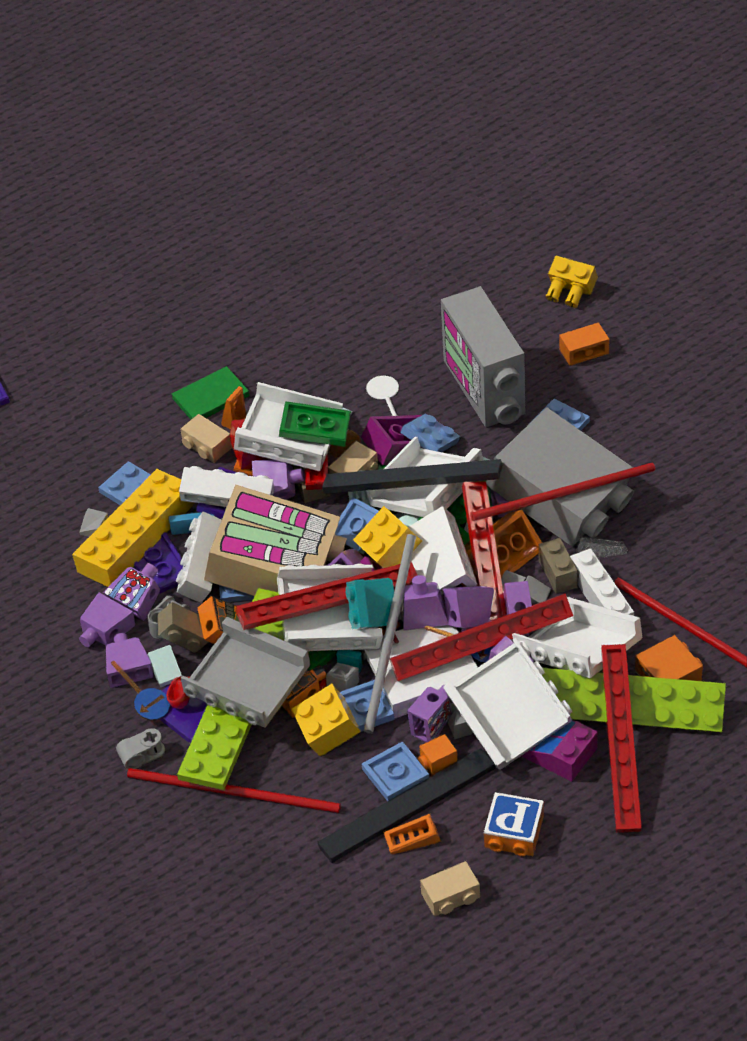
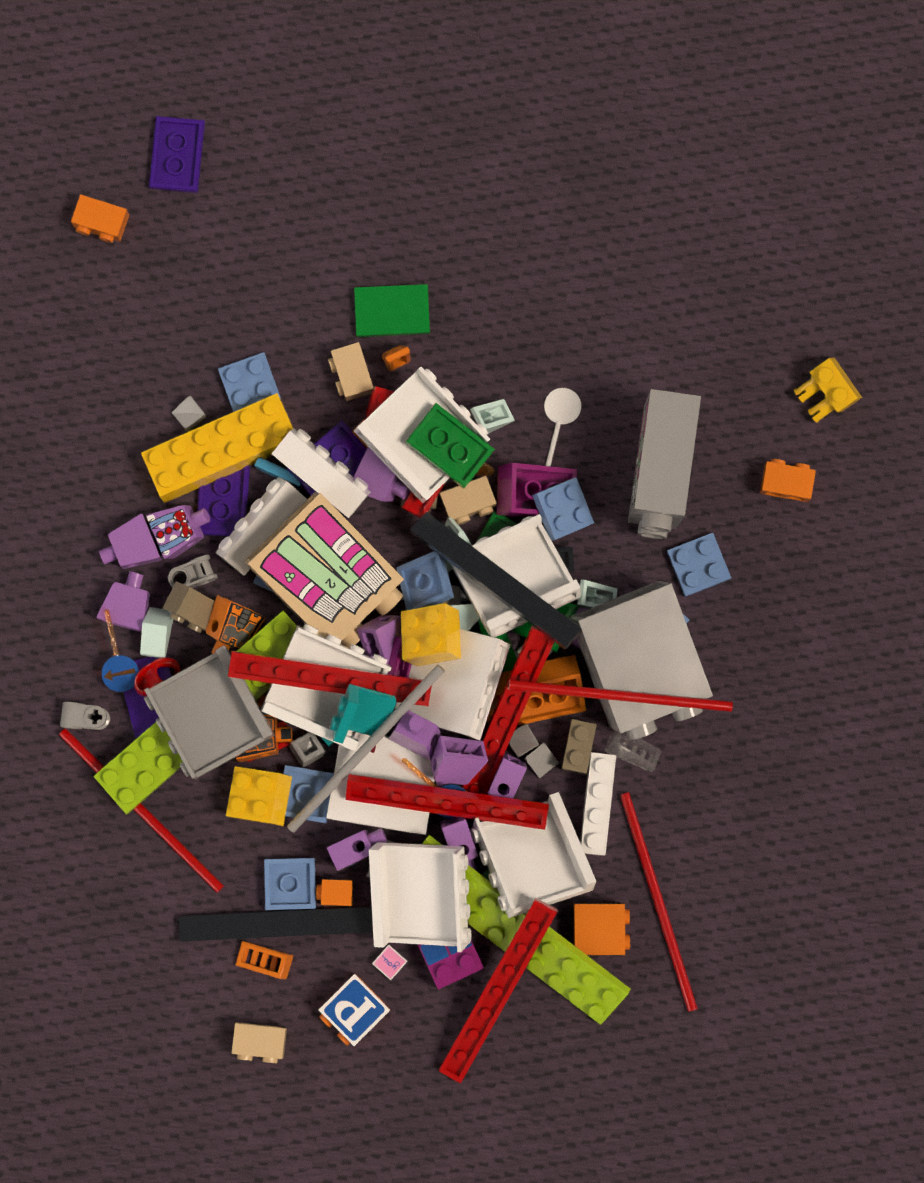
camera: 25 degrees right, 35 degrees up
(518, 782) = (389, 962): none -> bright pink tile

